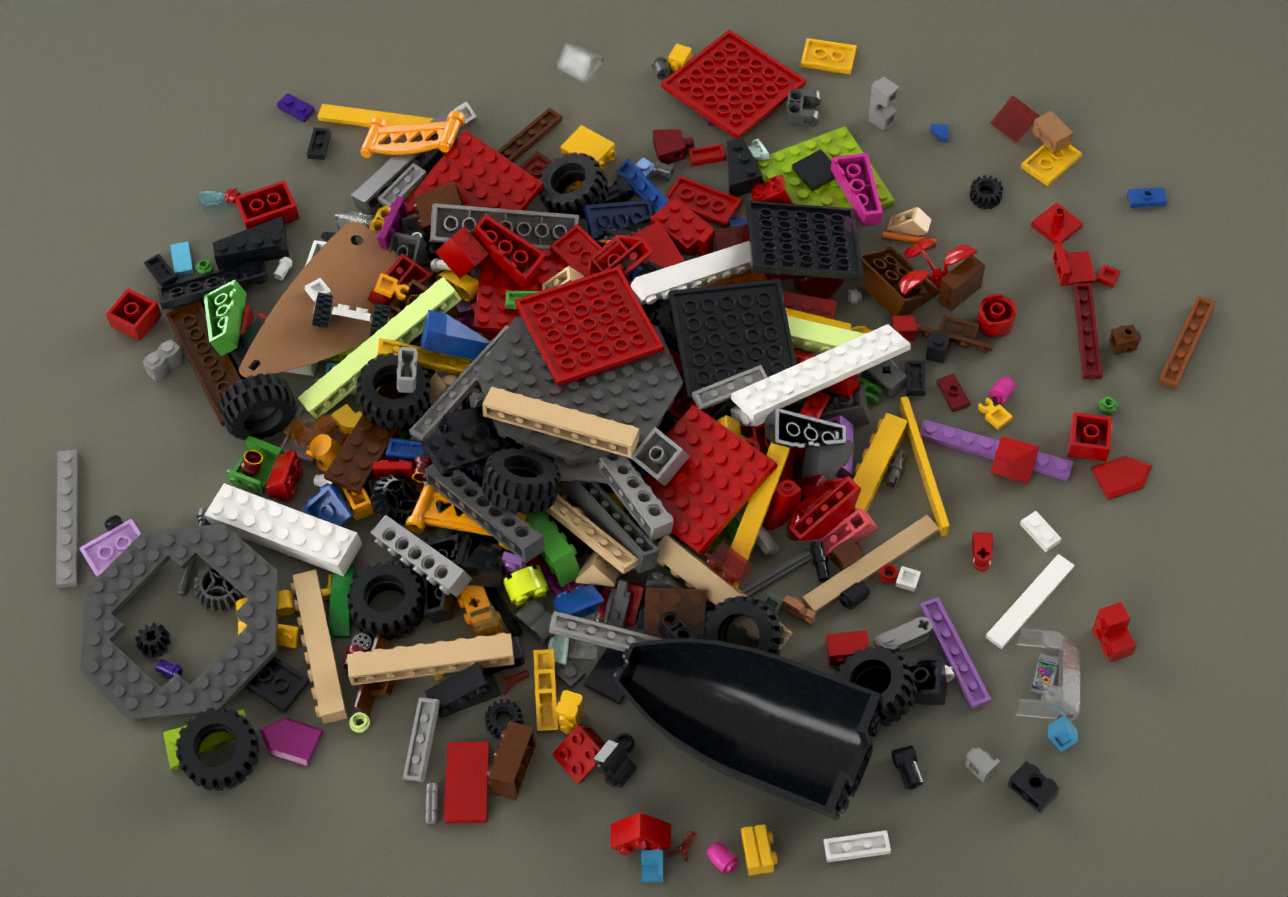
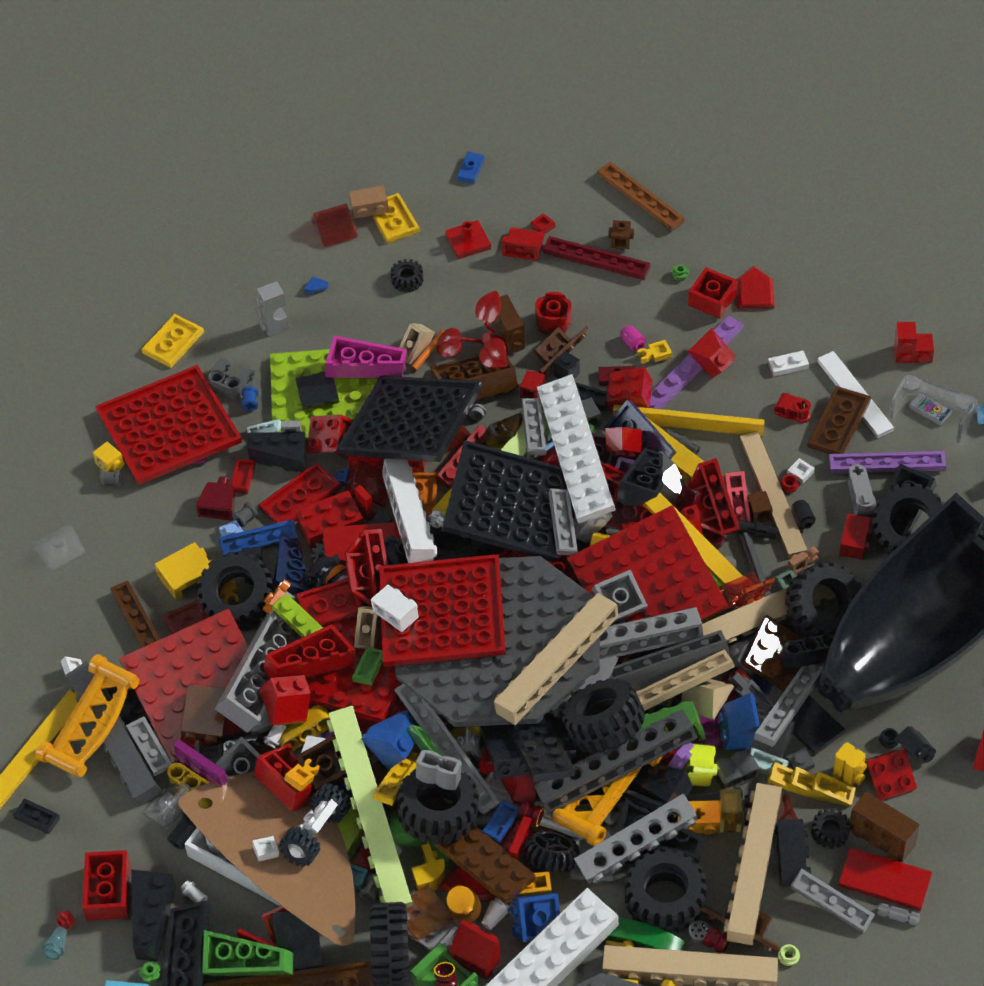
camera: 70 degrees left, 5 degrees down
(456, 364) = (422, 739): none -> bright green tile
(550, 232) = (295, 616): none -> lime plate
(563, 208) = (272, 598): none -> orange plate
(569, 287) = (395, 608): none -> white brick
(762, 163) = (290, 426): none -> light grey plate
(788, 129) = (249, 398): none -> blue bush
(830, 316) = (502, 430): none -> dark brown plate
(836, 336) = (533, 426): none -> light grey tile
(856, 412) = (624, 441): none -> red brick
(881, 421) = (631, 417): none -> dark blue wing
(931, 404) = (629, 385): none -> red brick
(985, 595) = (839, 421): none -> reddish brown tile

